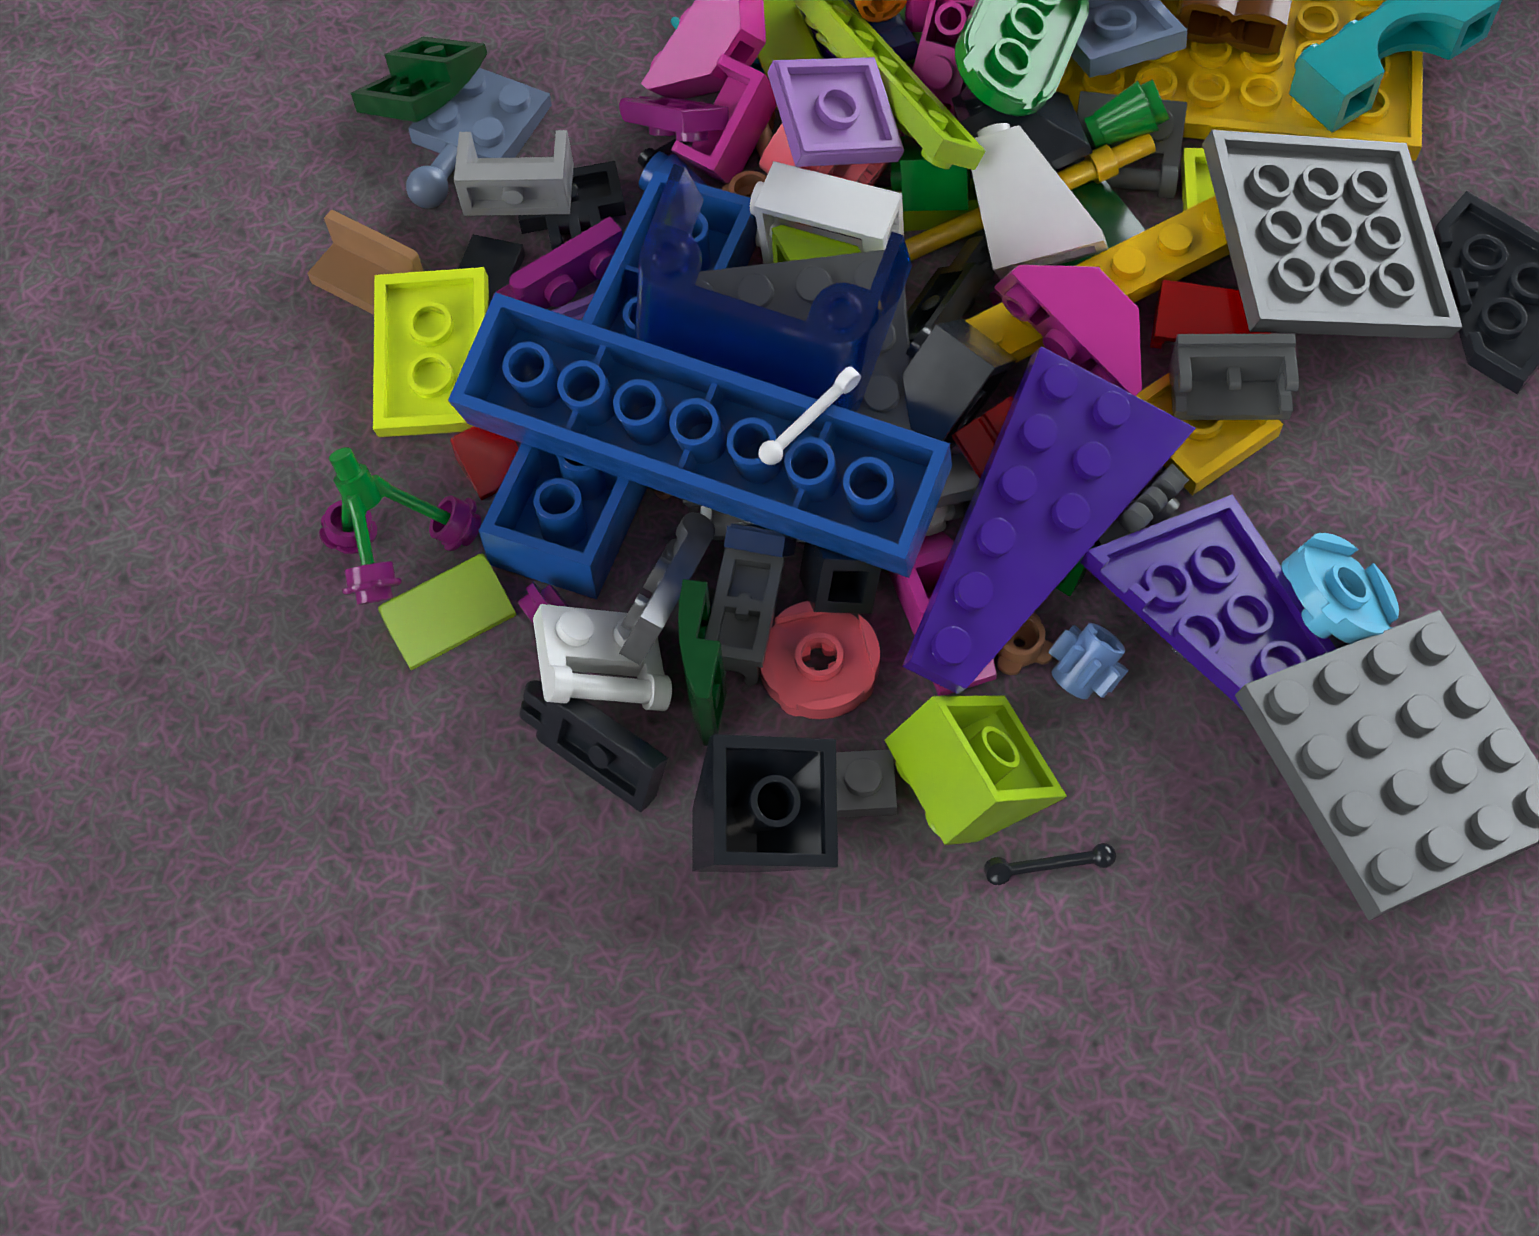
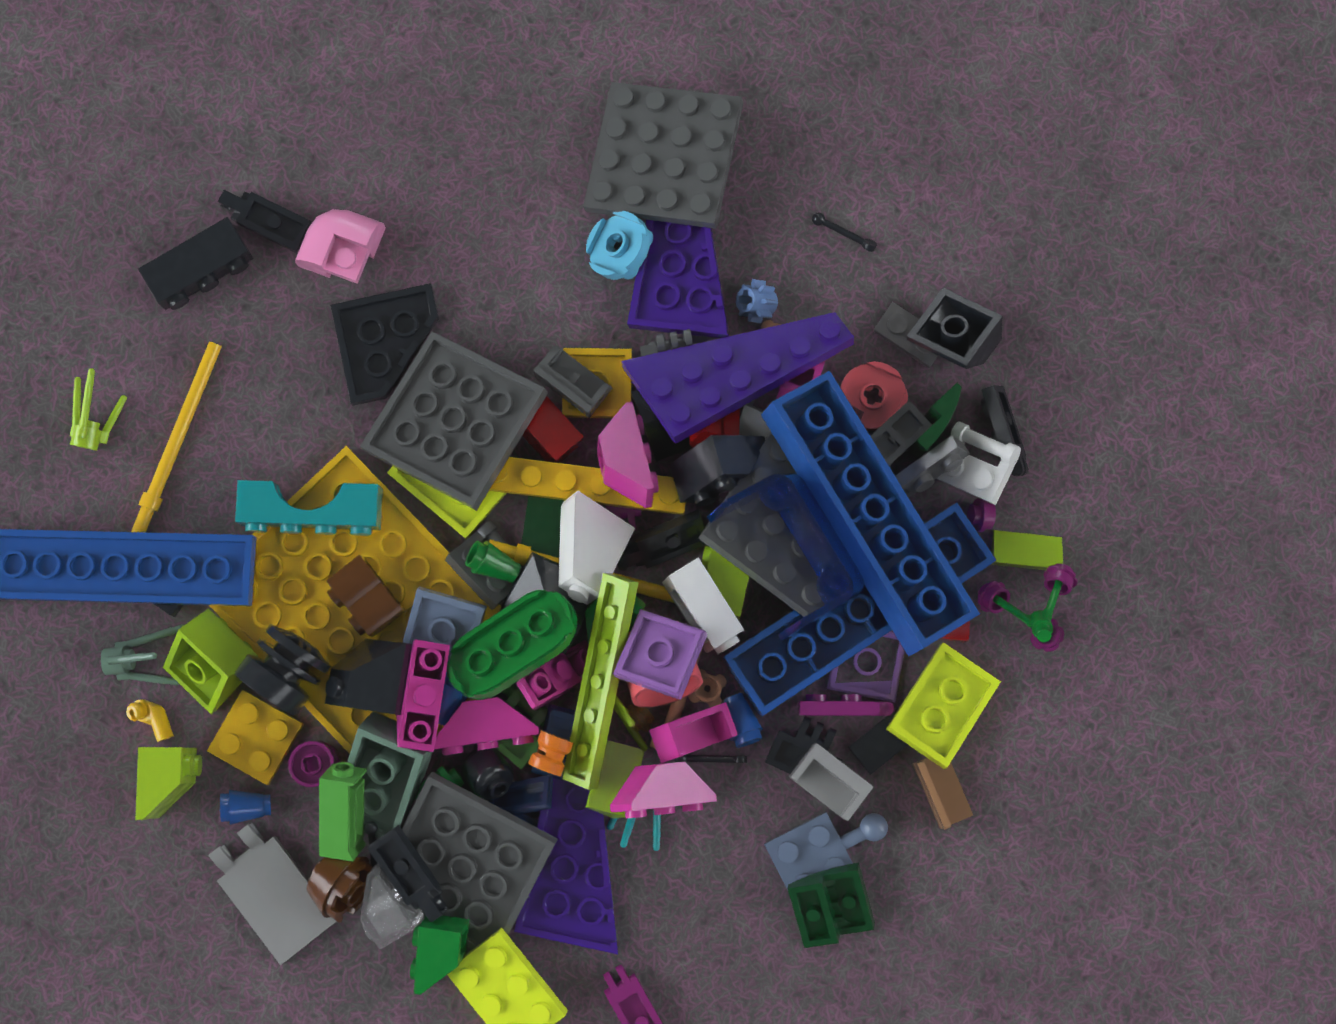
camera: 150 degrees left, 20 degrees up
(674, 116) = (719, 759): magenta hinge -> none
(772, 451) = (854, 460): white hinge -> none
(972, 766) = (848, 286): lime slope -> none

